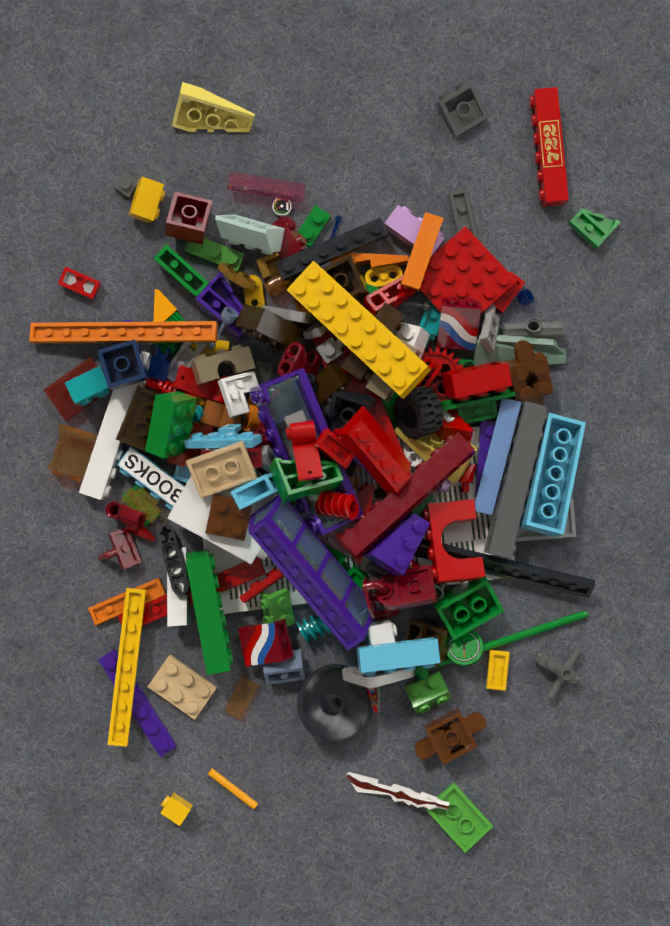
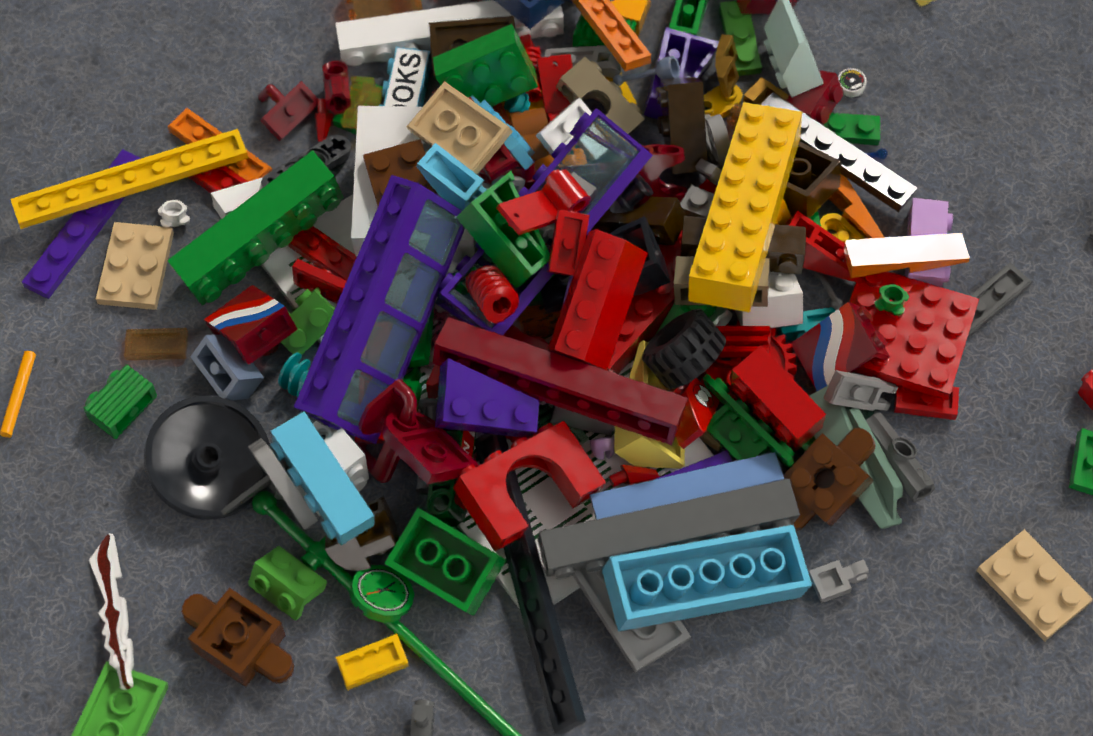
camera: 65 degrees right, 25 degrees down
(157, 644) = (173, 214): none -> white plate
(159, 366) = (554, 35): clear blue plate -> none
(266, 186) = (864, 52): clear pink tile -> none
(270, 735) = (119, 401): none -> green brick
(445, 282) = (894, 293): none -> green plate
(525, 297) = (936, 432): clear blue hinge -> none
(581, 406) = (834, 581): none -> light grey plate
(637, 302) = (1034, 585): none -> tan plate

